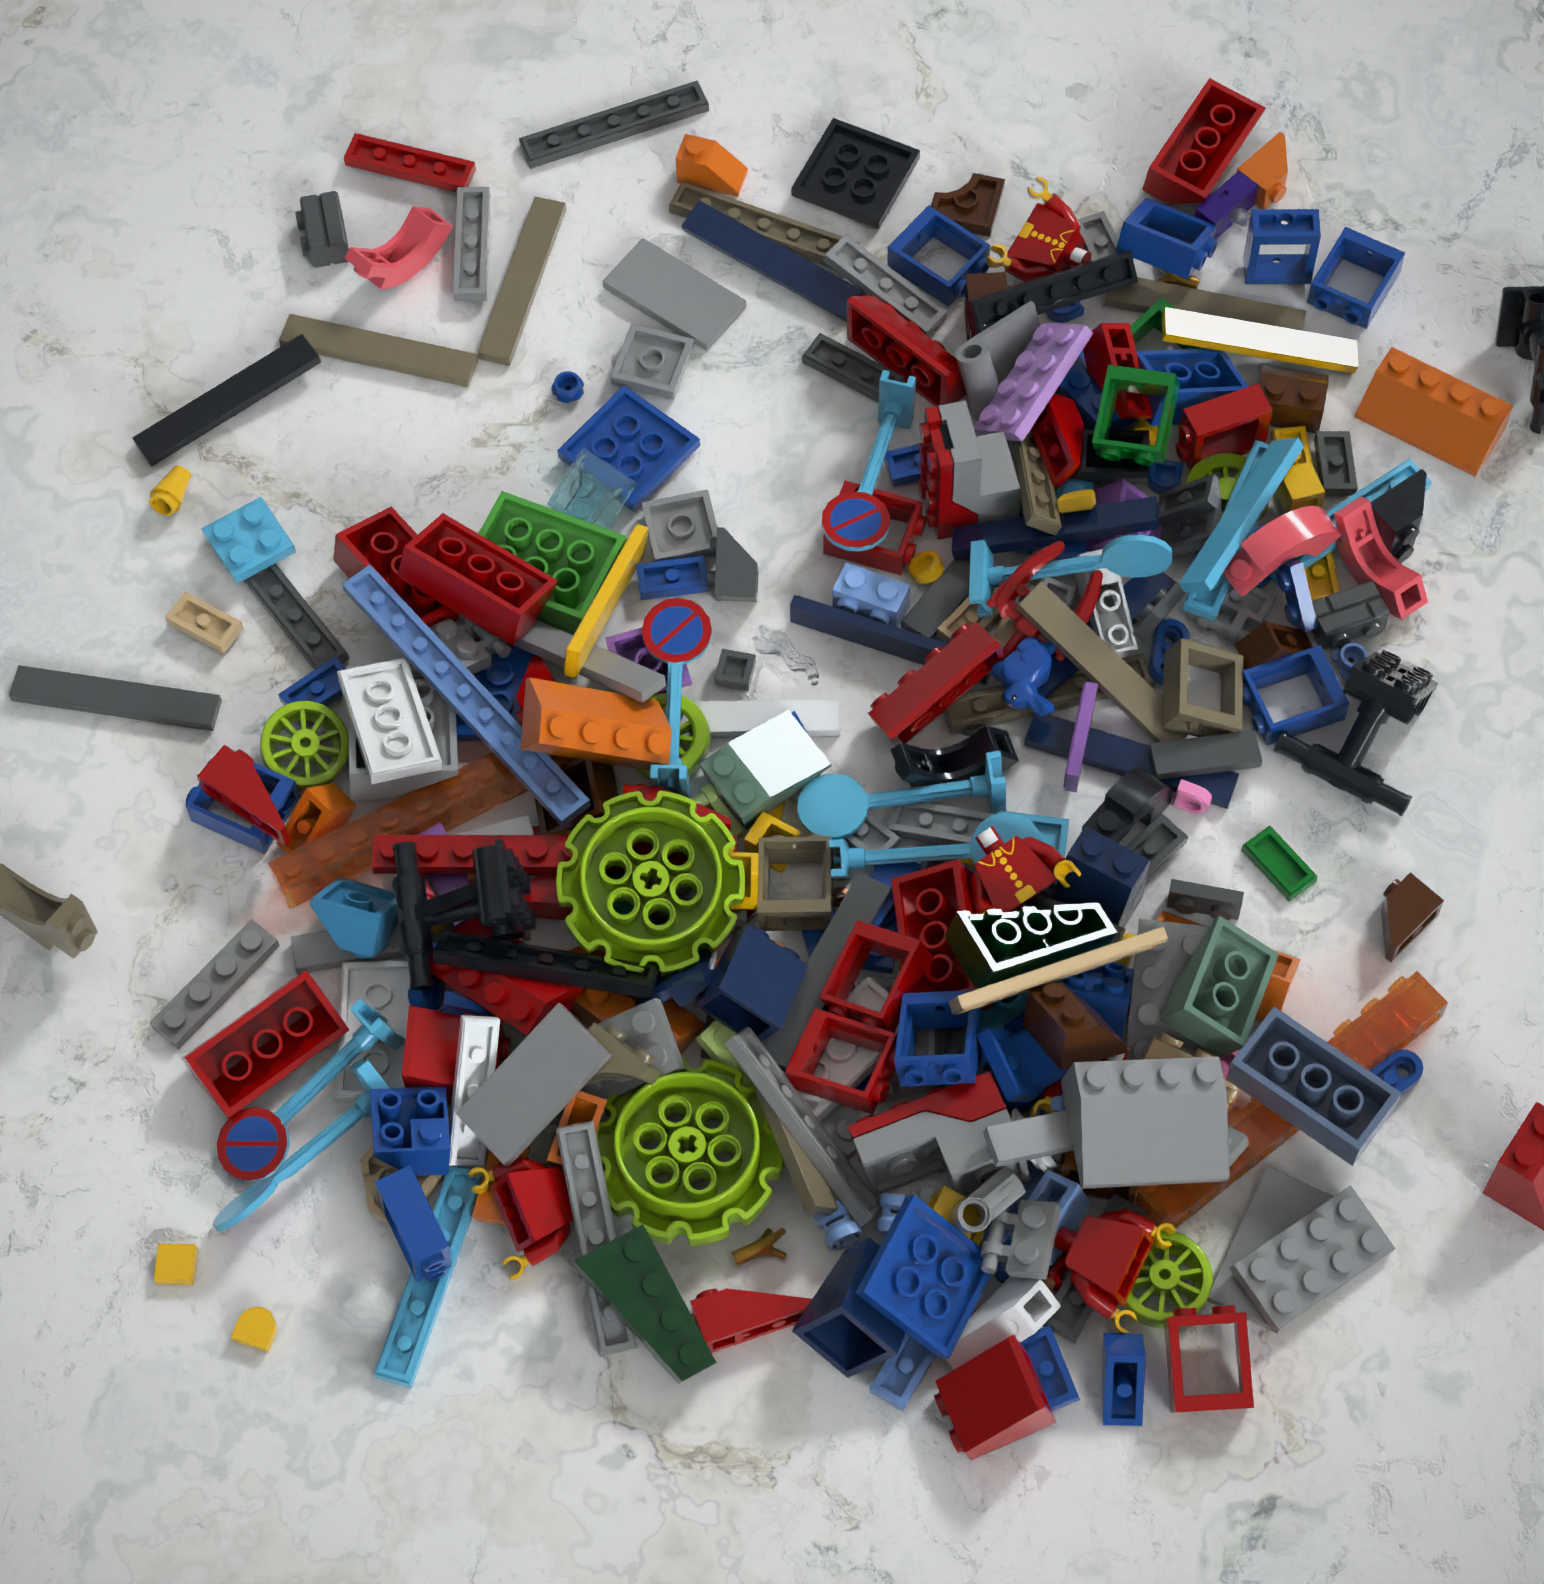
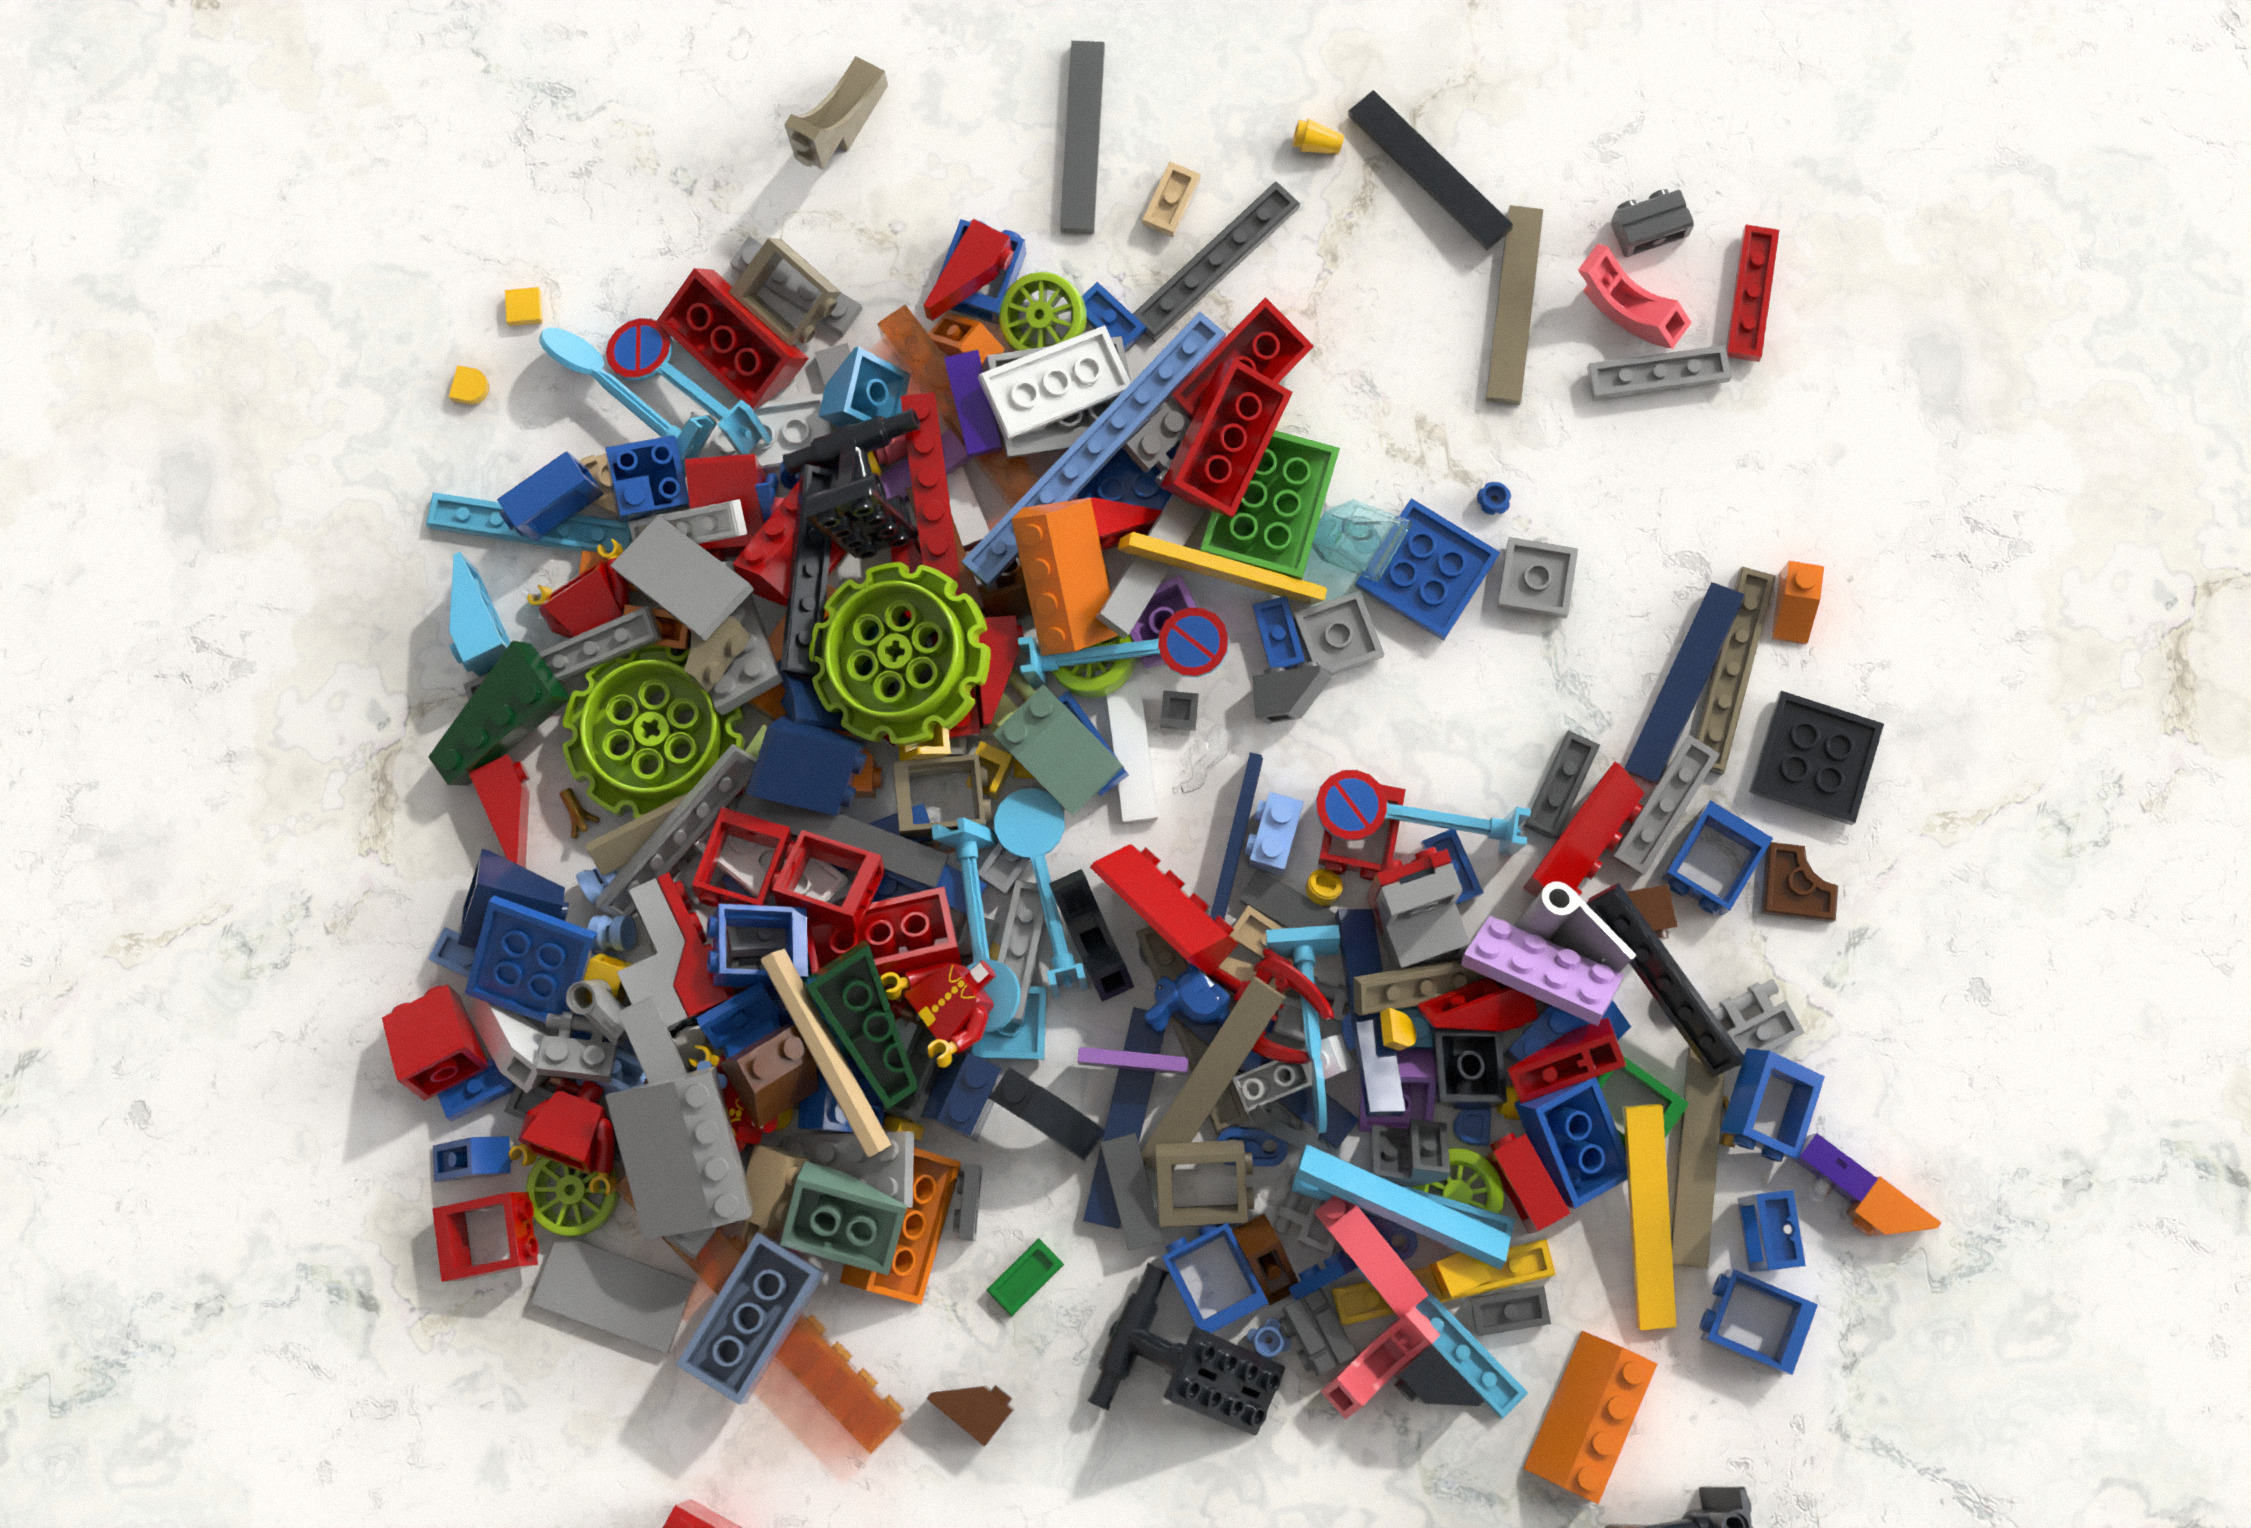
camera: 85 degrees right, 15 degrees up
(197, 999) = (758, 272): none -> dark tan window
(248, 540) = (1265, 220): medium azure plate -> none
(393, 801) = (972, 406): none -> dark purple tile
(522, 281) = (1624, 431): dark tan tile -> none
(537, 1322) = (474, 620): none -> medium azure slope
(613, 124) = (1844, 495): dark grey tile -> none
(674, 294) = (1629, 589): light grey tile -> none
(1046, 242) = (1743, 971): red torso -> none
(1142, 382) = (1538, 1079): green window -> none
(1158, 842) = (1021, 1143): dark grey plate -> none
(1191, 798) = (1083, 1182): bright pink tile -> none
(1202, 145) = (1908, 1137): red slope -> none
(1294, 396) = (1593, 1257): reddish brown slope -> none
(1312, 1258) = (599, 1331): light grey plate -> none
(1400, 1059) = (793, 1400): blue plate -> none

